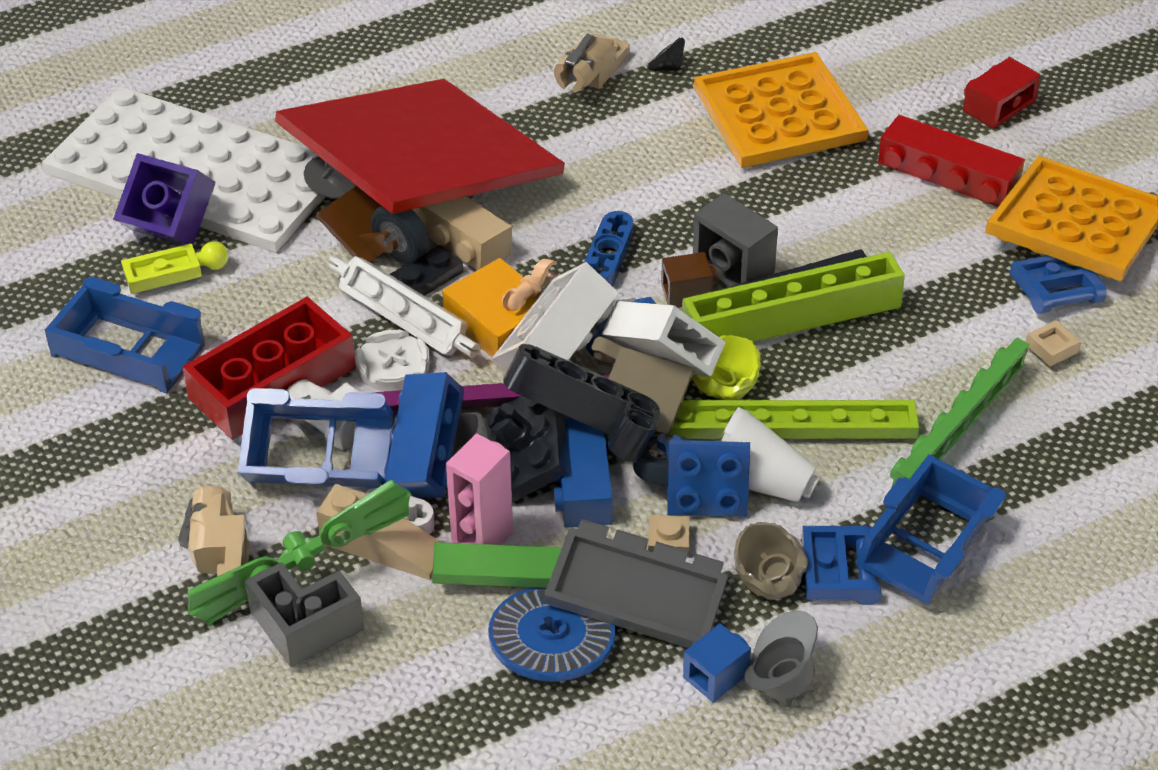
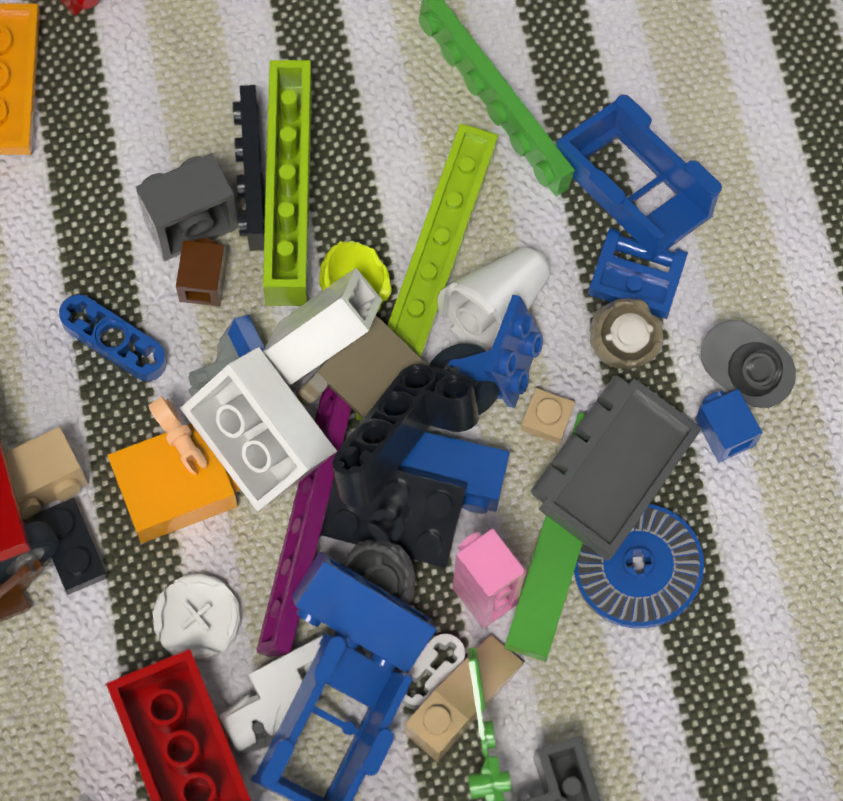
camera: 75 degrees left, 25 degrees up
(403, 306) = (124, 583): white plate -> none

